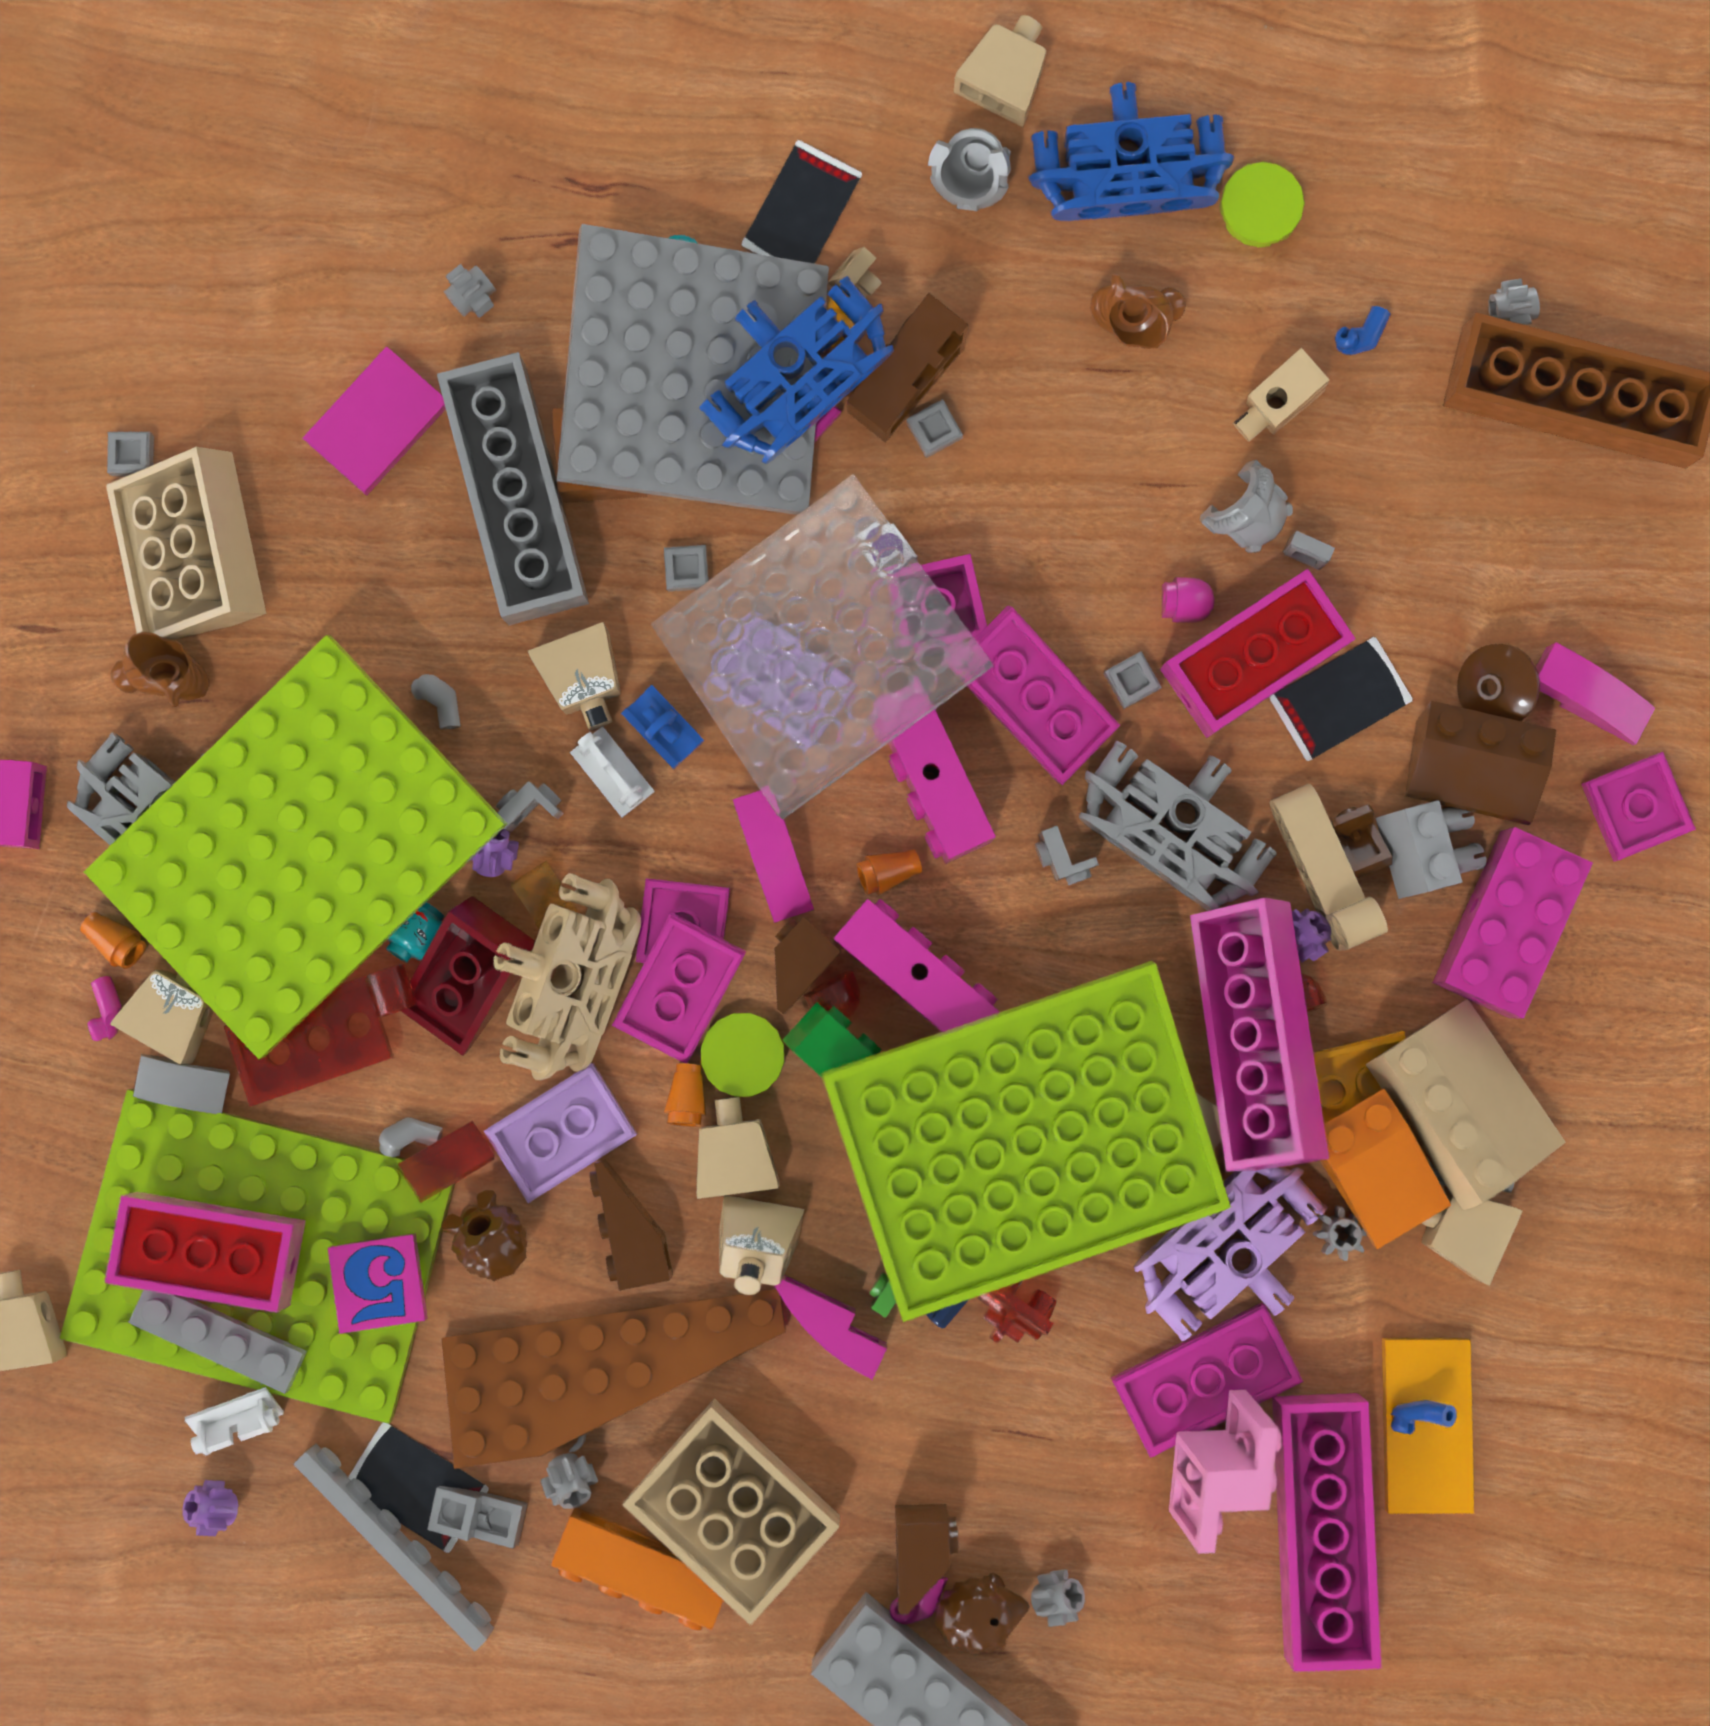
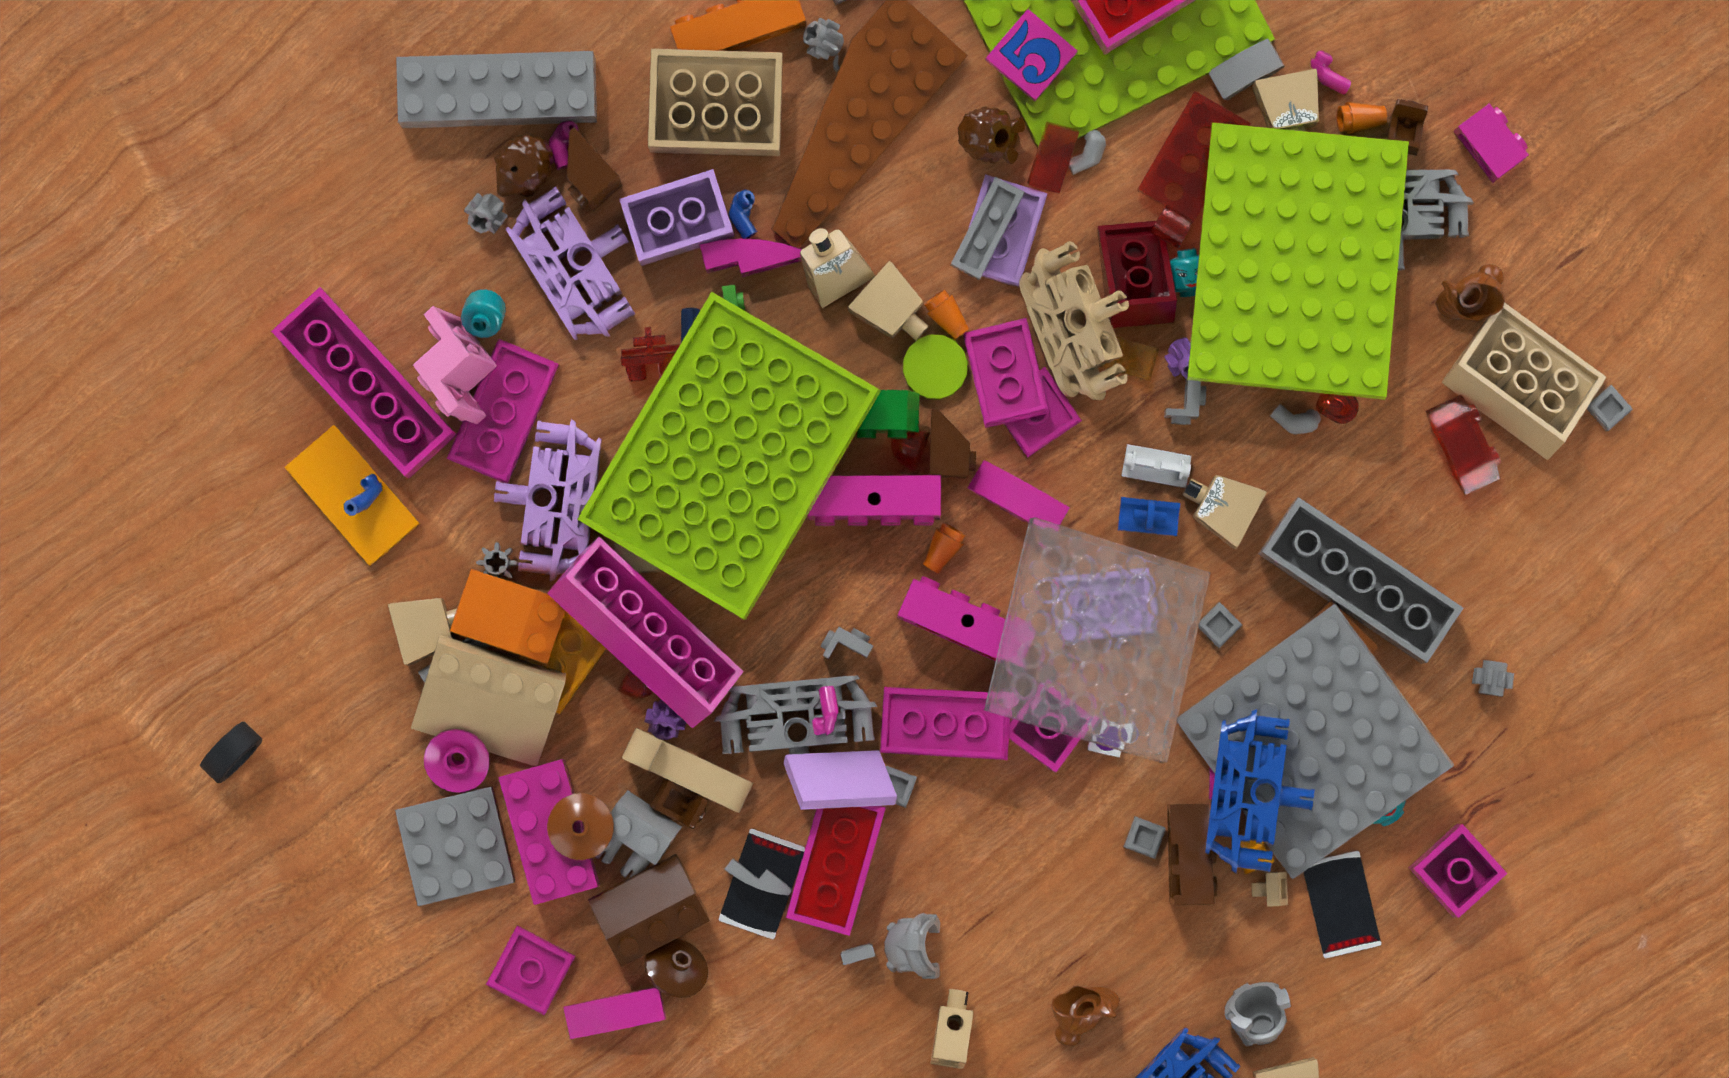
camera: 135 degrees right, 0 degrees up
(72, 895) = (1407, 123): none -> reddish brown bracket
(297, 535) = (1464, 444): none -> clear red brick
(376, 421) = (1480, 553): dark pink tile -> none
(388, 674) = (1338, 407): none -> clear red piece
(572, 1146) = (987, 228): none -> light grey plate
(635, 1239) = (906, 208): reddish brown slope -> none
(664, 138) = (1457, 870): none -> dark pink brick
(802, 1375) = (740, 212): none -> blue arm
(871, 1427) = (676, 217): none -> lavender brick
(1043, 1475) = (554, 278): none -> lavender piece
(1141, 801) = (829, 710): none -> dark pink arm
(1146, 1497) = (483, 313): none -> teal head
(1187, 600) = (904, 863): dark pink piece -> none
(1188, 727) = (840, 779): none -> lavender tile
(1339, 691) = (767, 882): none -> light grey slope
(1465, 903) = (597, 821): none -> dark orange dish
(1559, 1067) = (454, 774): none -> dark pink dish
(1613, 989) = (455, 846): none -> light grey plate

